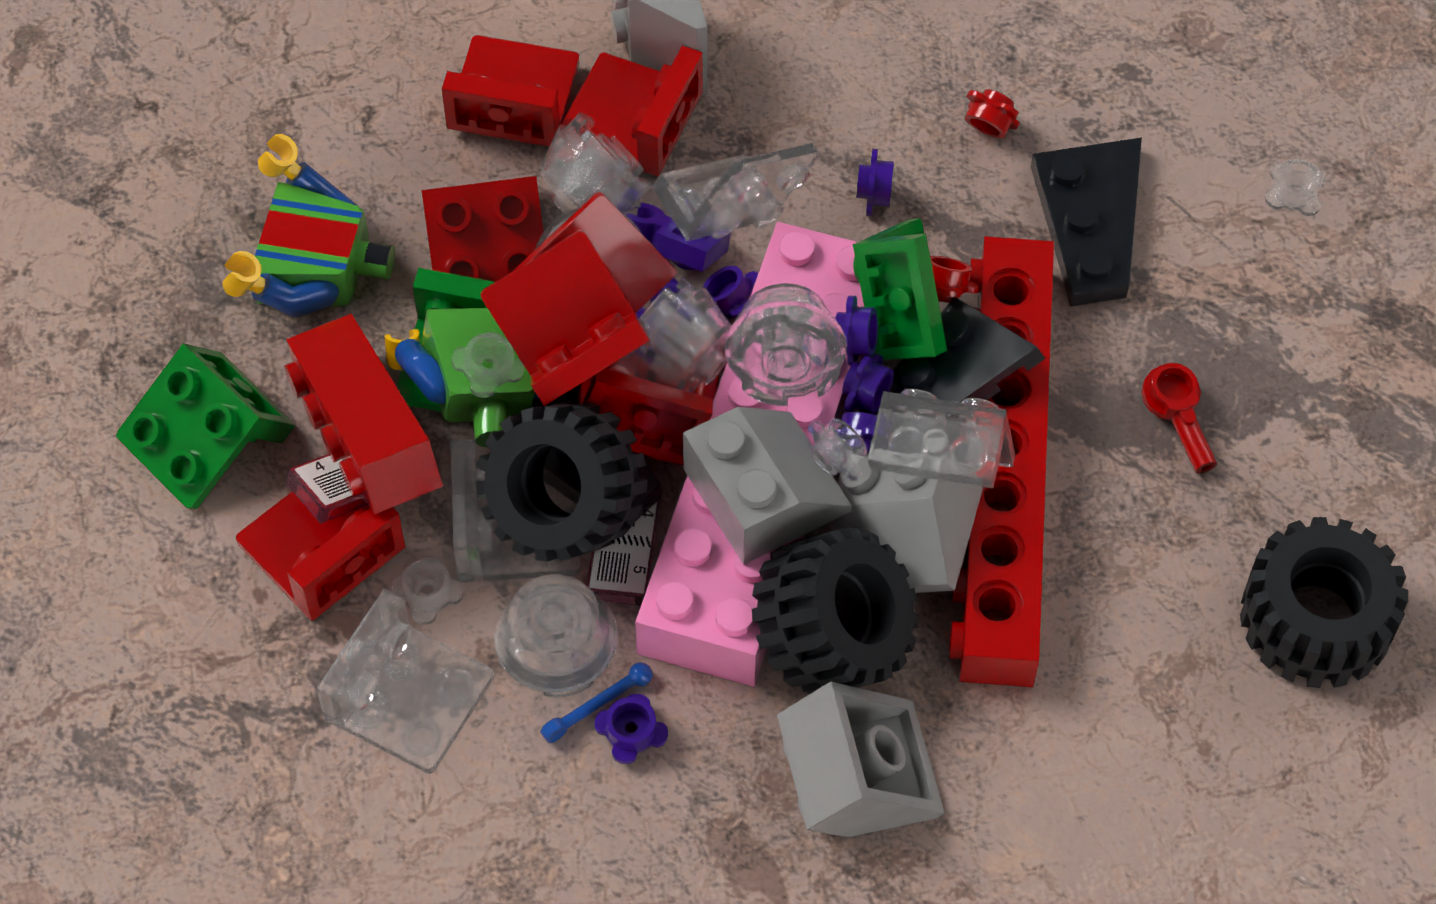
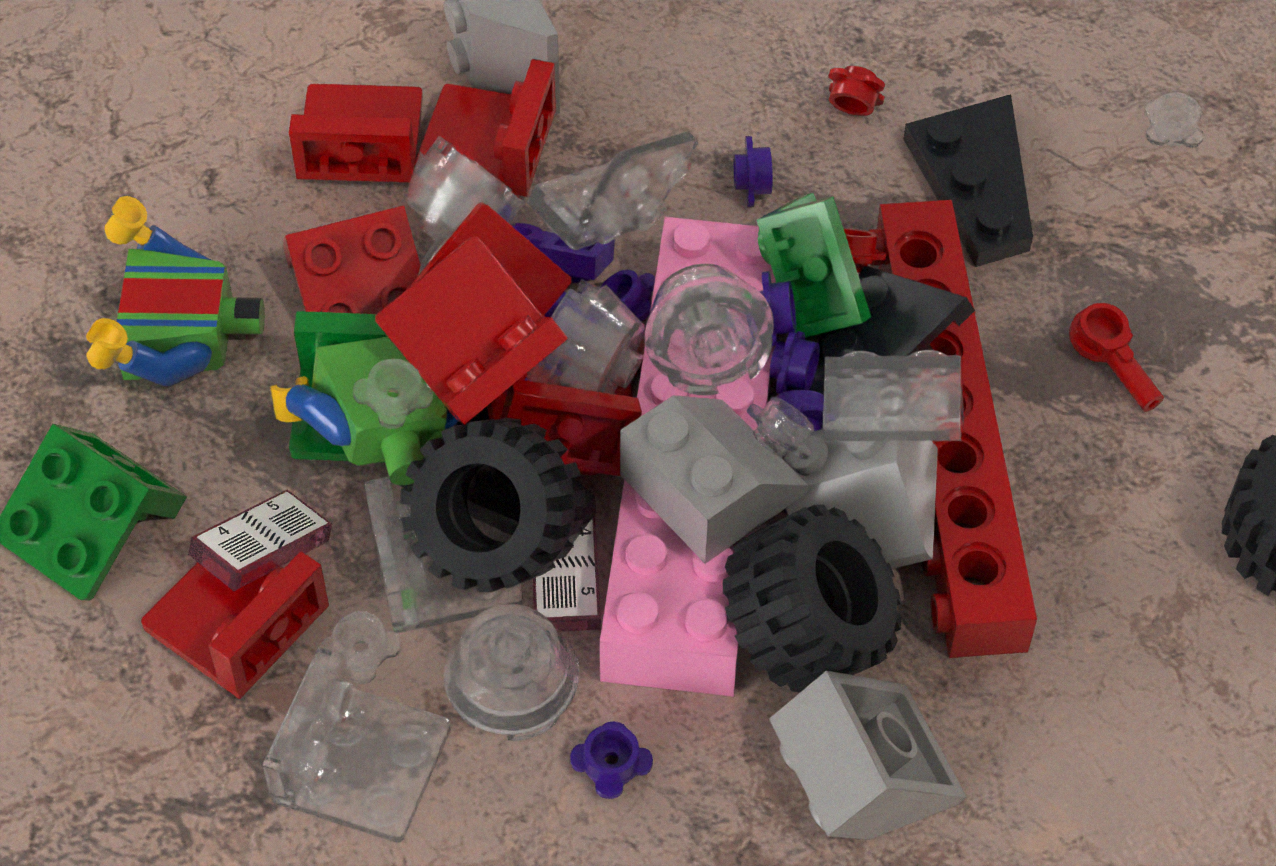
camera: 10 degrees left, 5 degrees down
(361, 415) = (262, 470): red brick -> none
(638, 675) = (607, 702): blue hinge -> none

